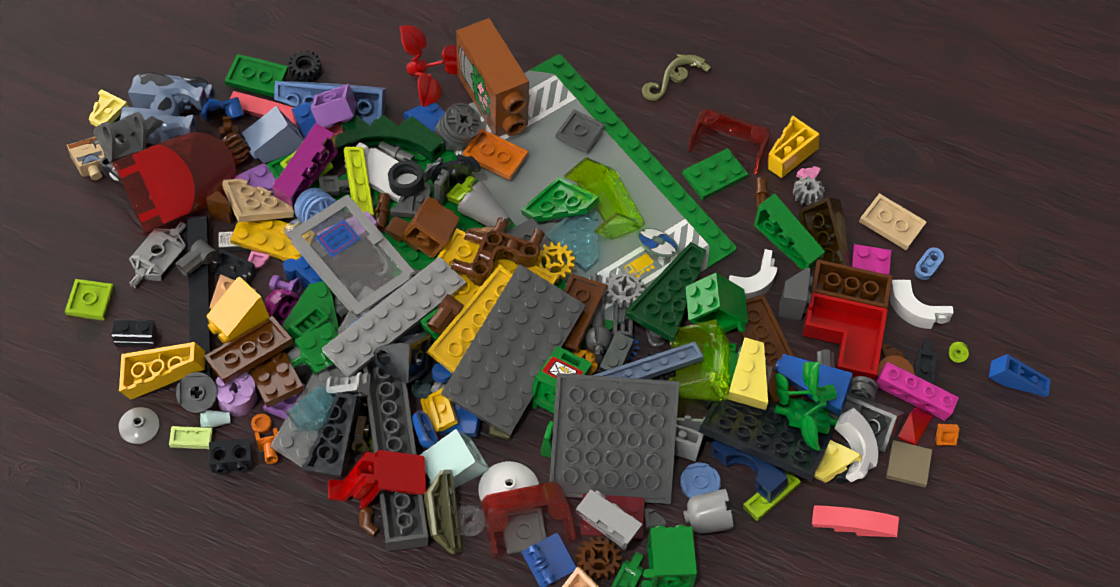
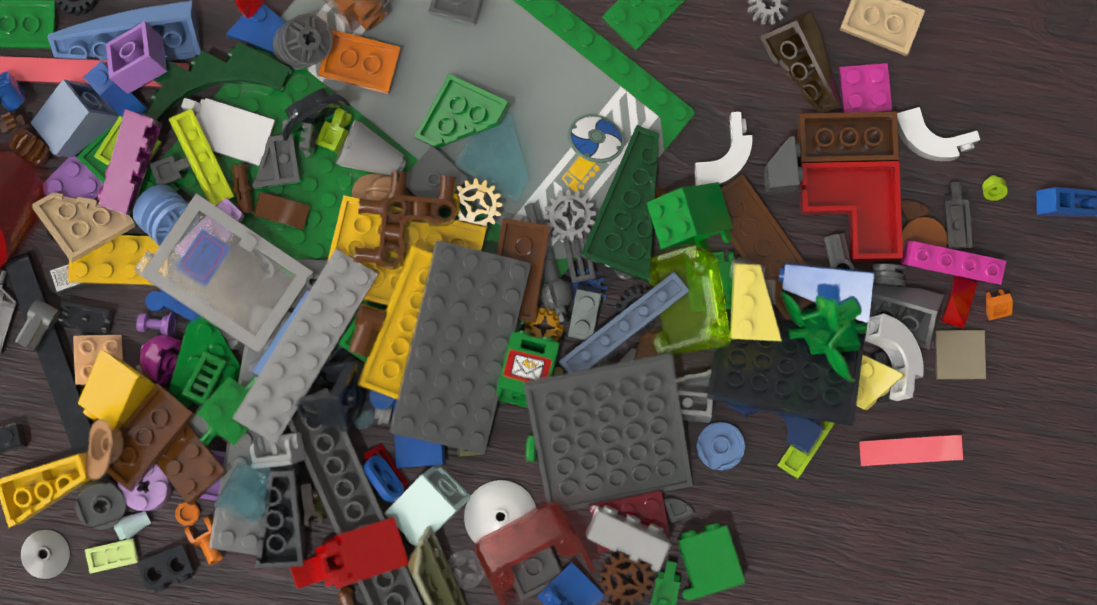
camera: 10 degrees left, 25 degrees up
(216, 343) = (103, 449): none -> medium nougat piece
(219, 208) = (37, 242): reddish brown slope -> none
(259, 259) = (109, 295): bright pink tile -> none
(395, 152) = (235, 97): dark grey pin -> none
(405, 189) = (246, 124): black tyre -> none
(430, 227) = (312, 199): dark orange slope -> none
(439, 411) = (393, 448): yellow plate -> none
(615, 203) = (526, 89): clear neon green windscreen -> none
(708, 512) = (740, 490): light grey cylinder -> none
(761, 190) = (709, 25): reddish brown axle -> none
(787, 233) = (757, 80): green wedge -> none
(928, 265) = (938, 71): medium blue plate -> none

